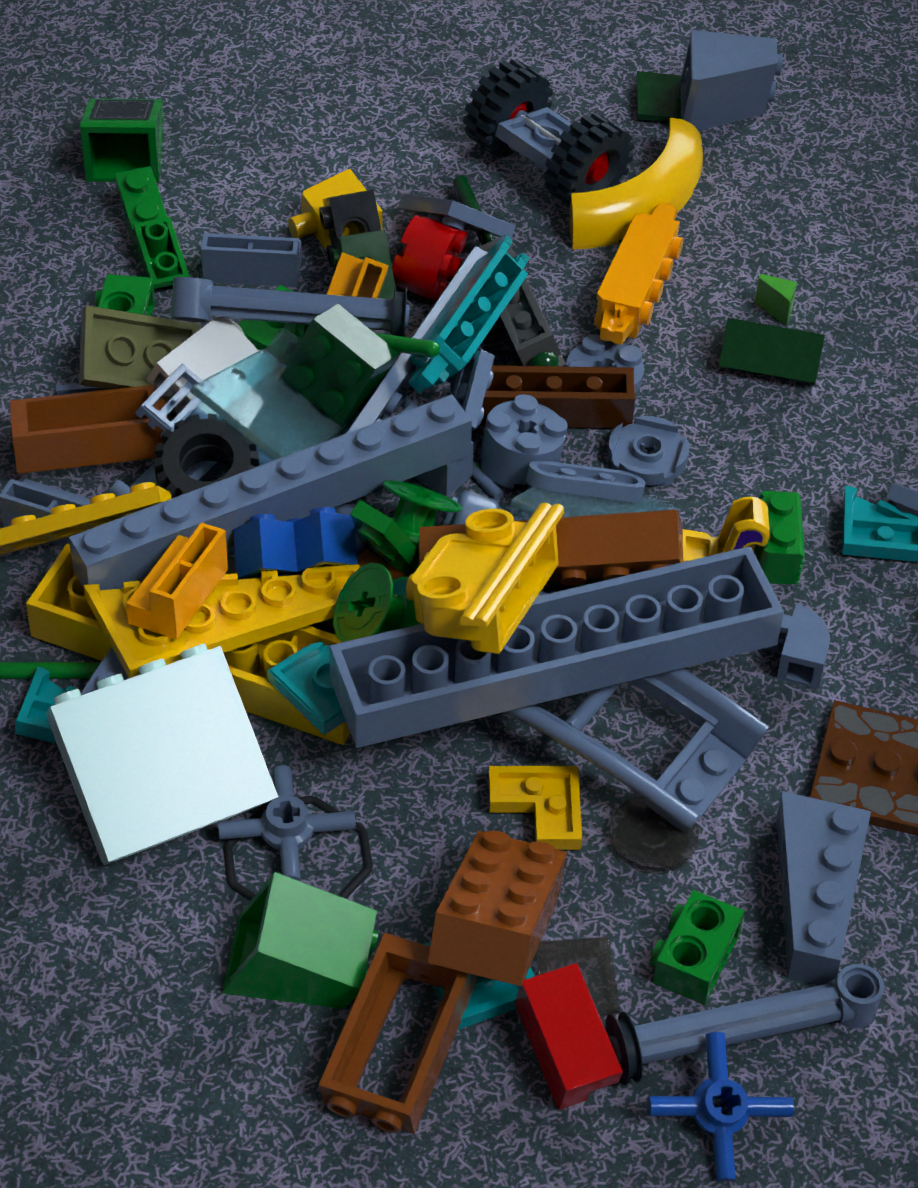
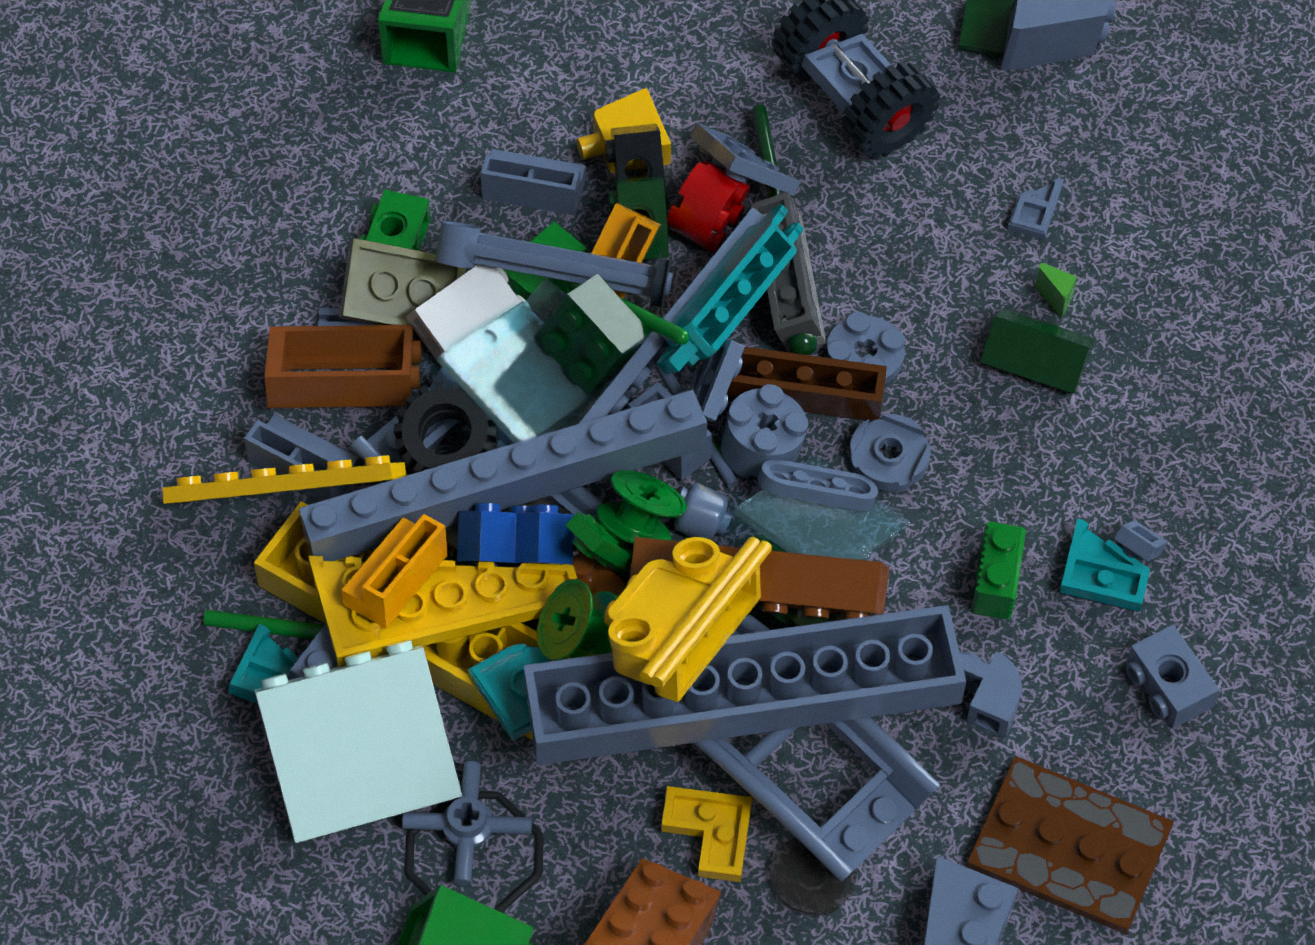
camera: 10 degrees right, 10 degrees up
(150, 227) = (437, 135): green slope -> none
(158, 418) = (405, 374): tile -> none
(605, 214) = (948, 154): yellow brick -> none
(638, 274) = (917, 245): light orange hinge -> none
(740, 240) = (1035, 210): none -> sand blue tile
(743, 527) = (940, 581): yellow animal -> none

